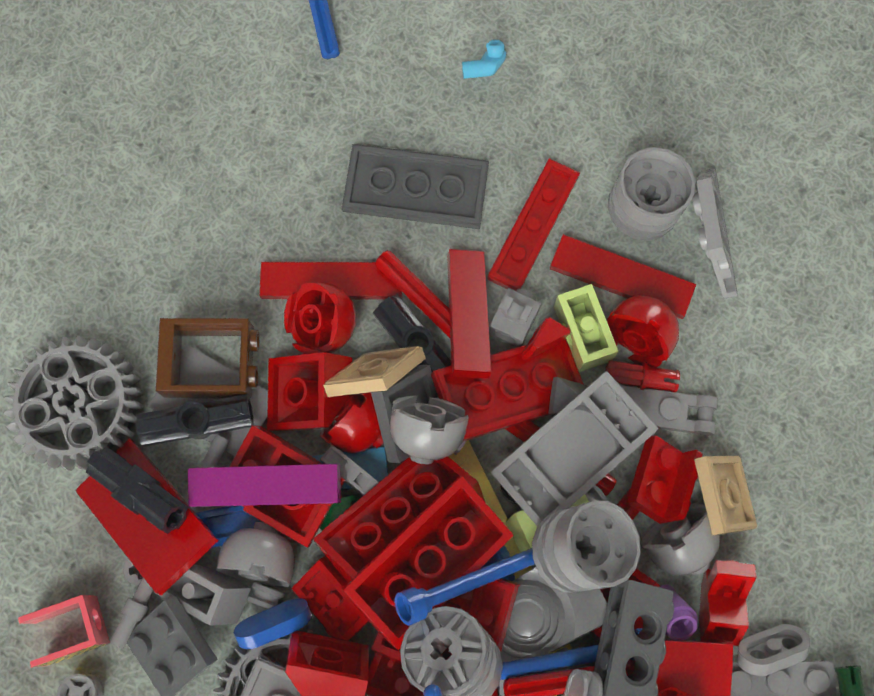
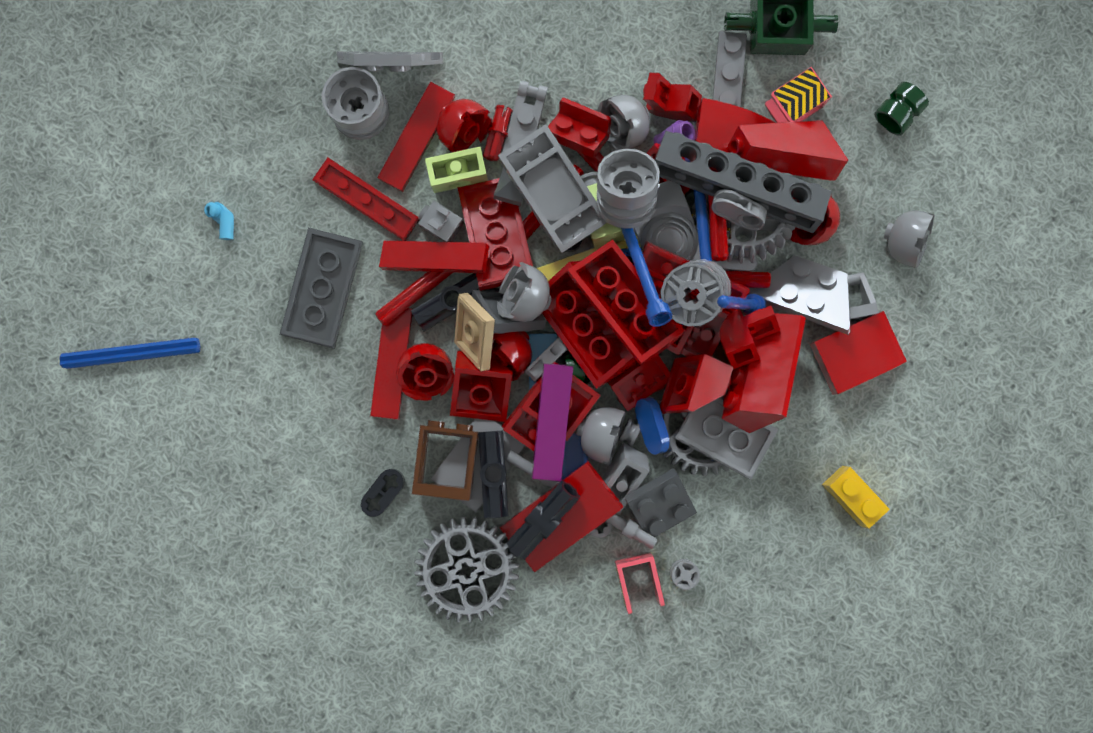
camera: 85 degrees left, 10 degrees up
(163, 295) = (377, 487): none -> black beam
(546, 336) = (461, 202): red slope -> none
(725, 494) = (595, 85): tan tile -> none
(773, 650) = (708, 76): light grey plate -> none

